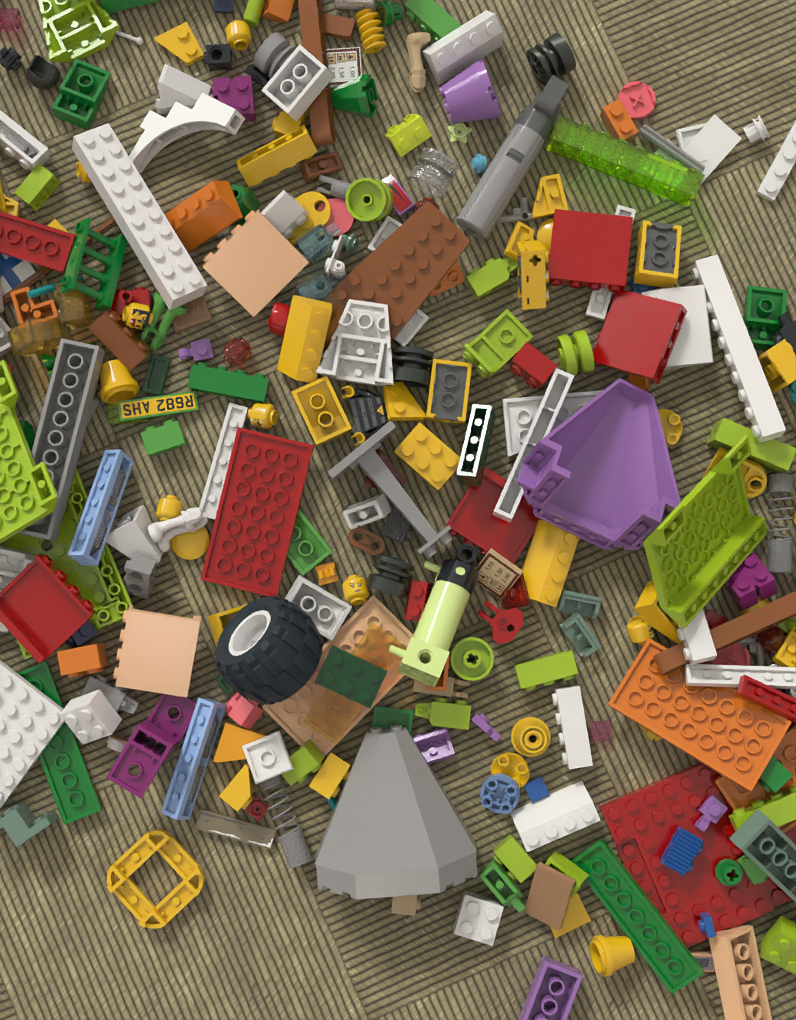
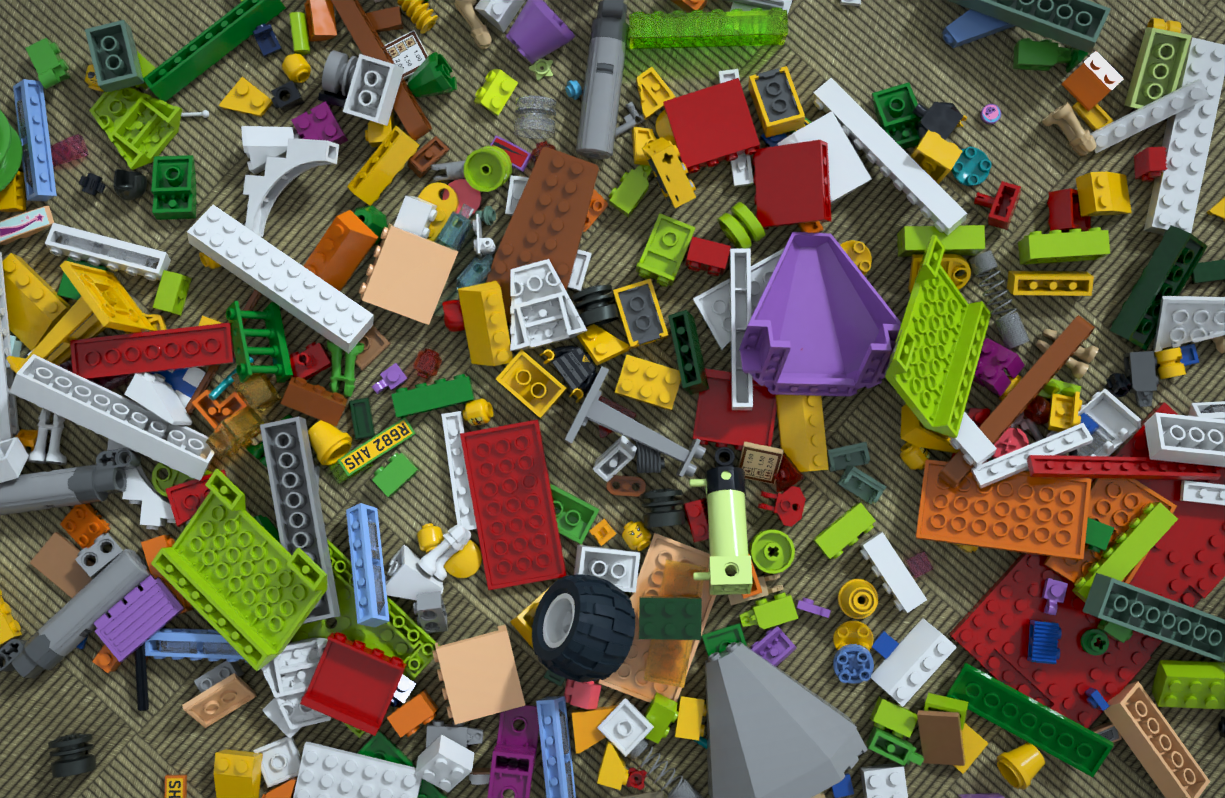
camera: 20 degrees left, 0 degrees up
(137, 316) = (320, 372): yellow head -> none
(440, 900) = (843, 788): none -> blue tile

